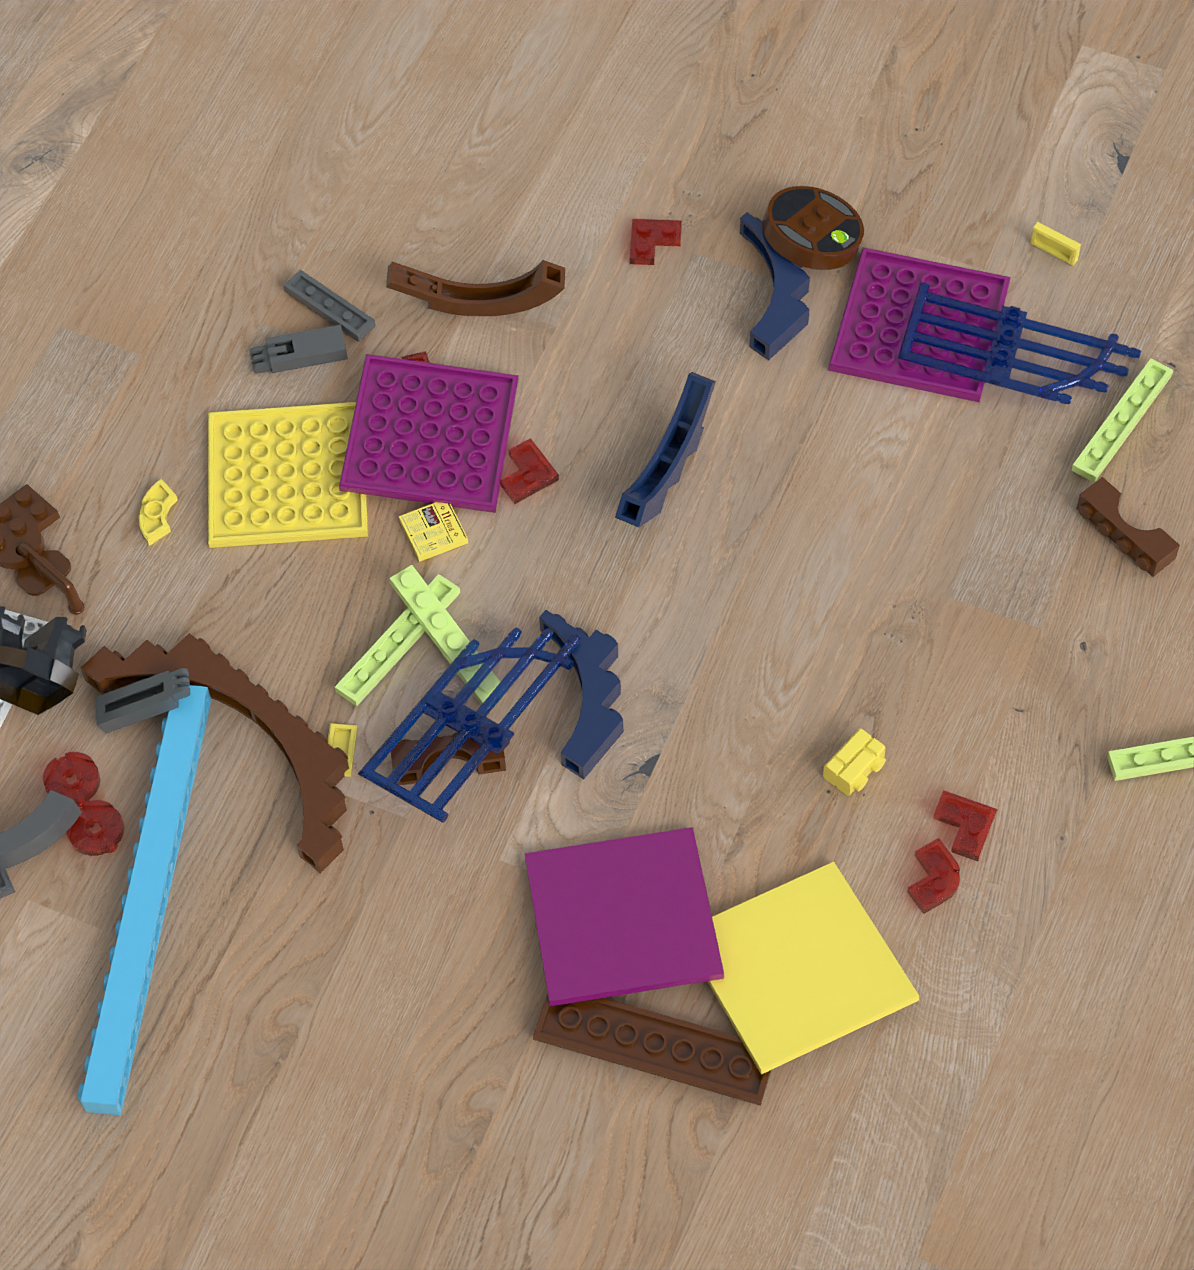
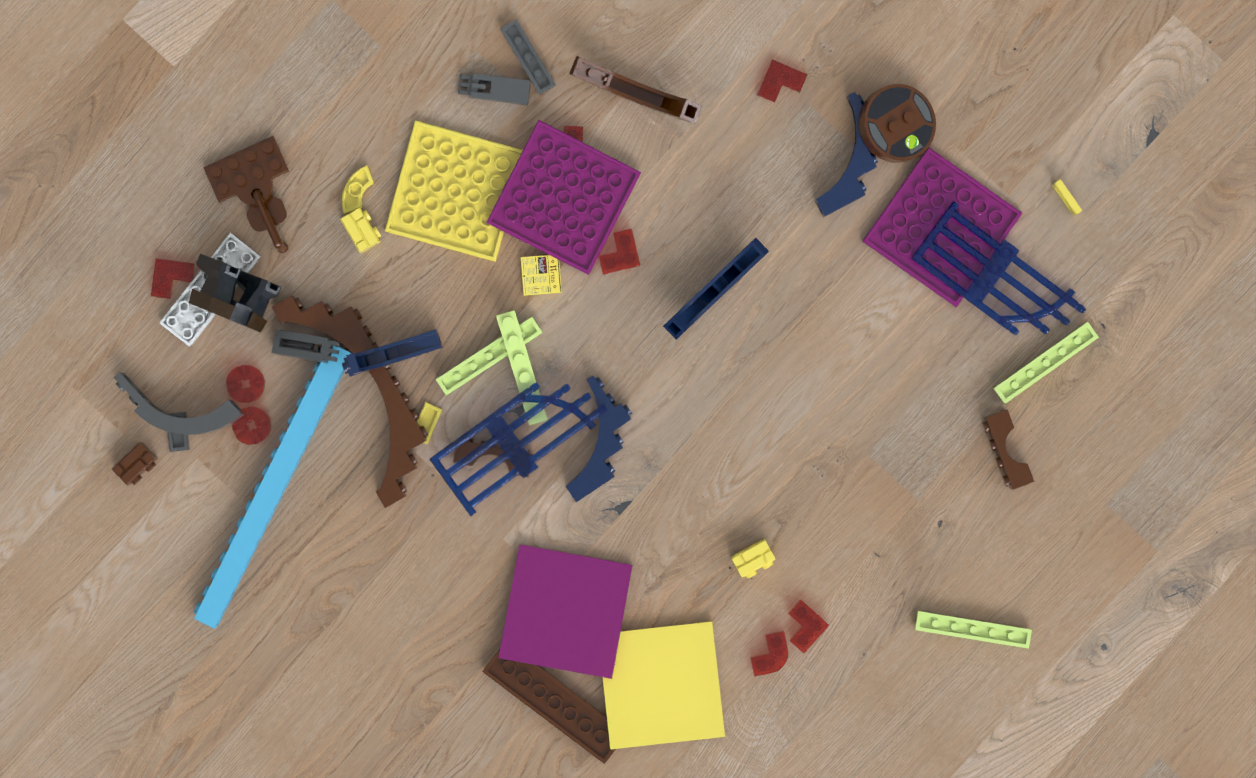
camera: 15 degrees right, 30 degrees up
(175, 549) = (360, 229): none -> light yellow brick
(254, 667) = (391, 353): none -> dark blue arch

